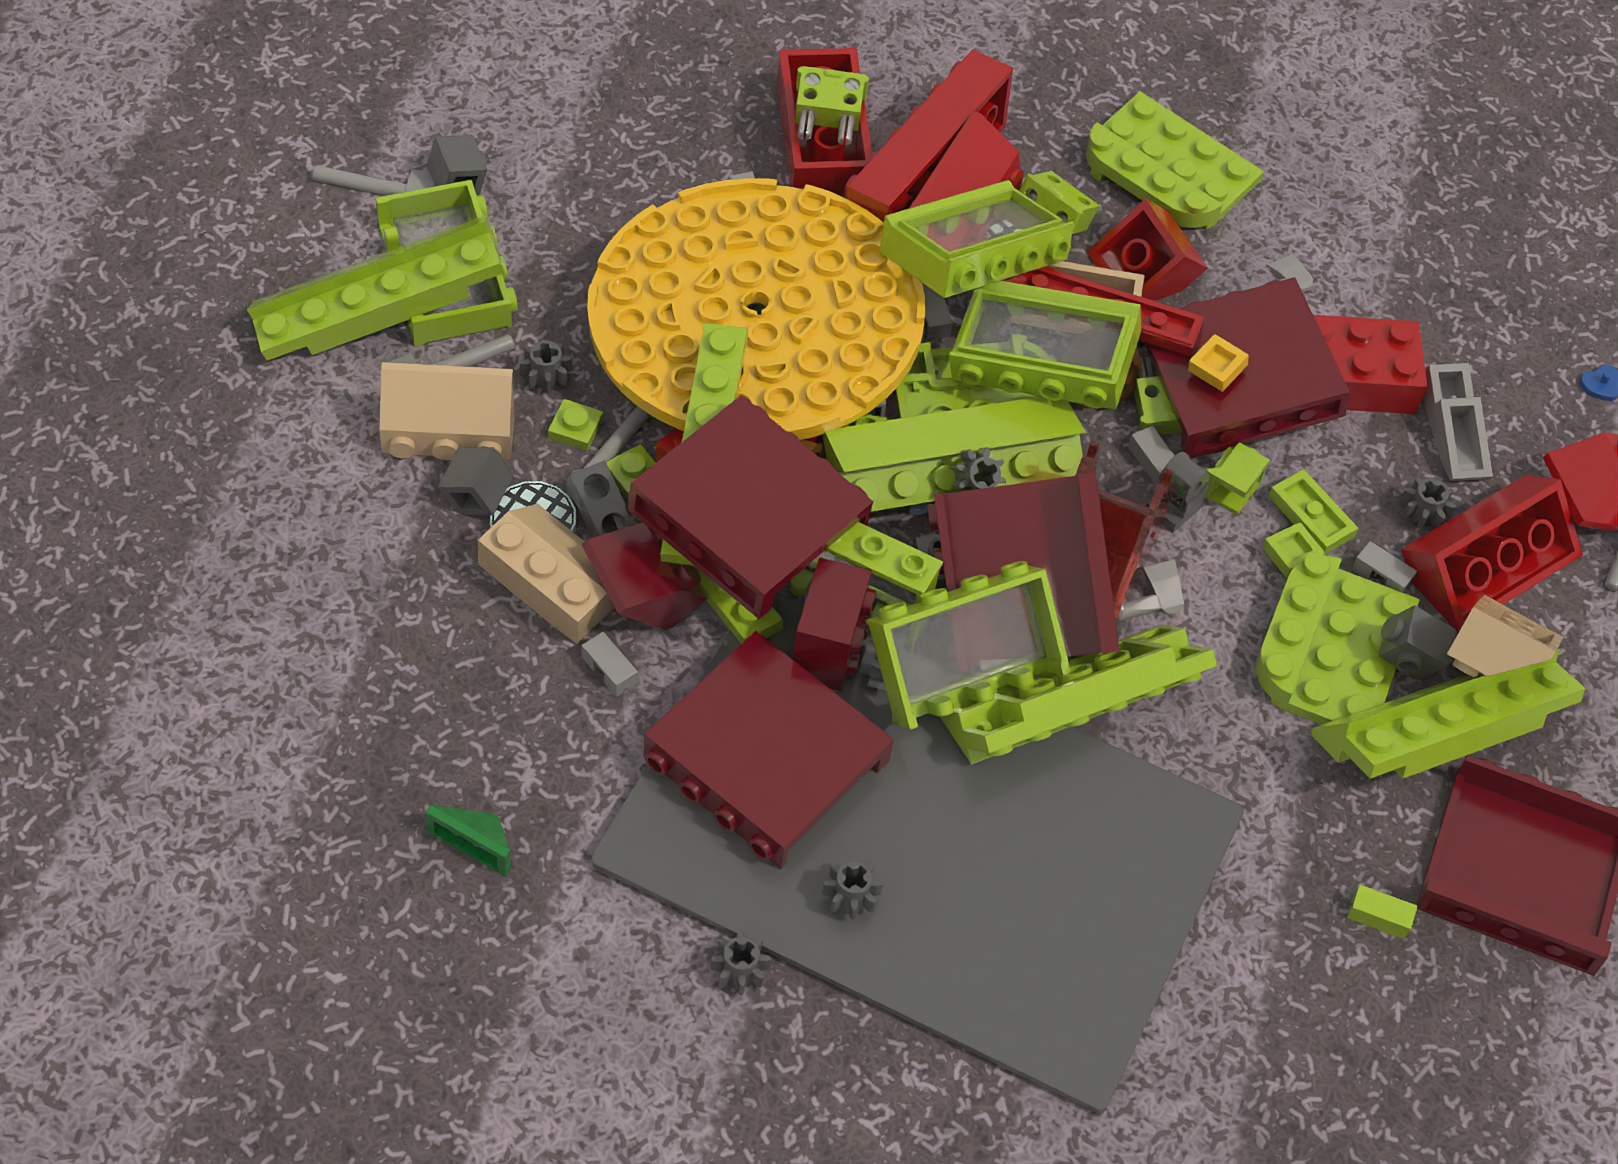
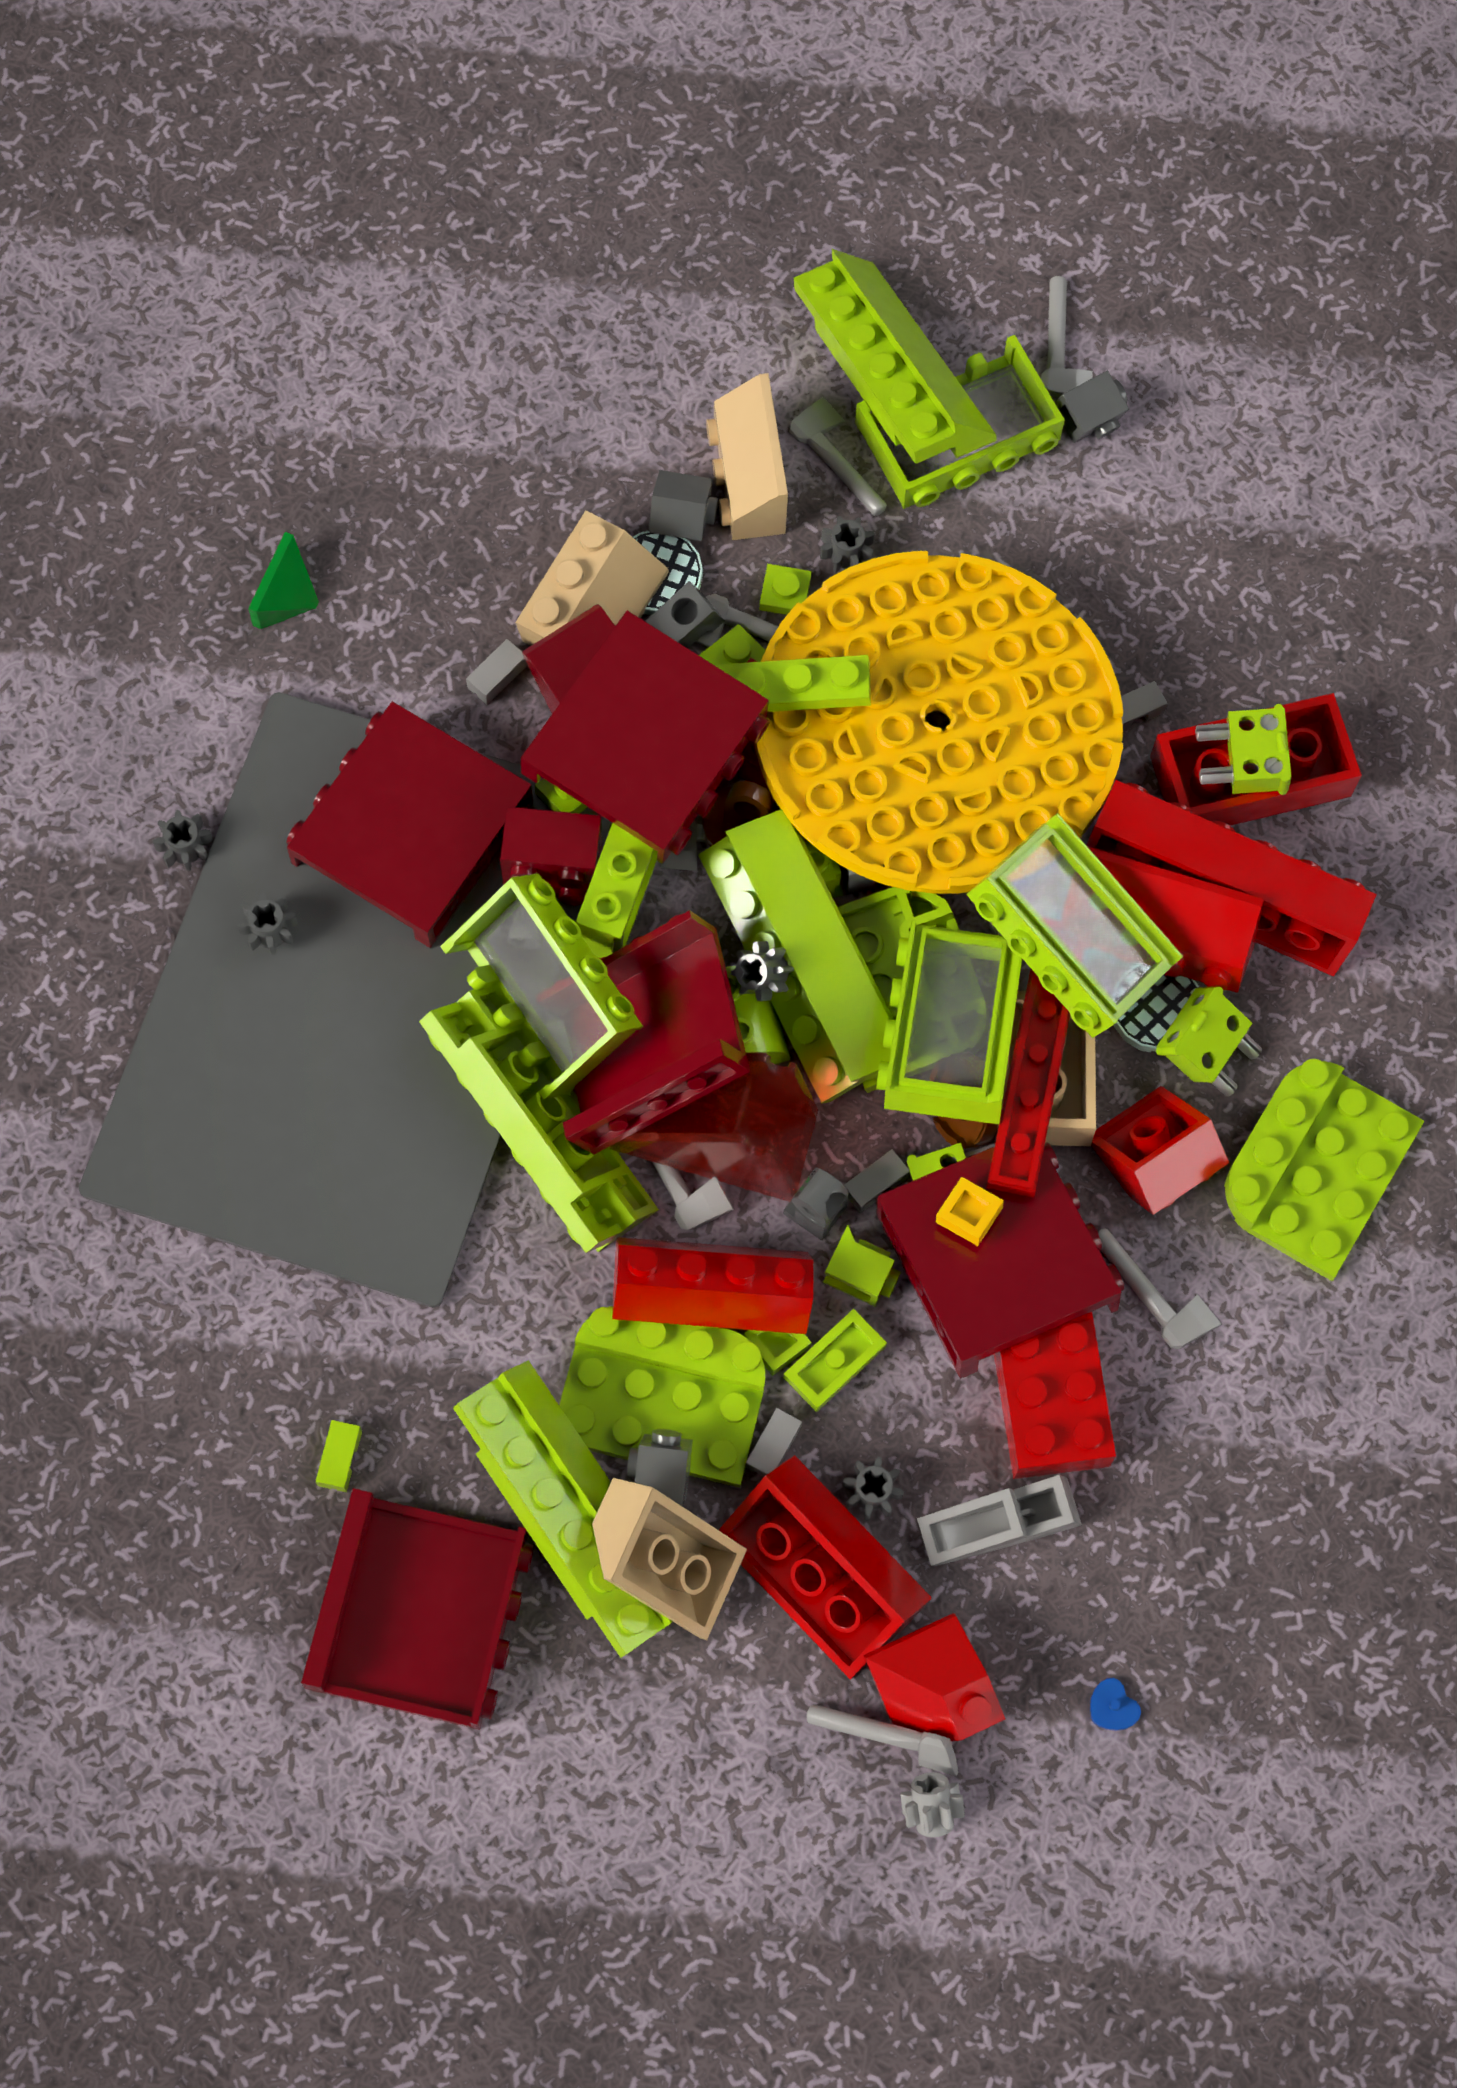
camera: 85 degrees right, 15 degrees up
(1247, 575) = (712, 1285): none -> red slope

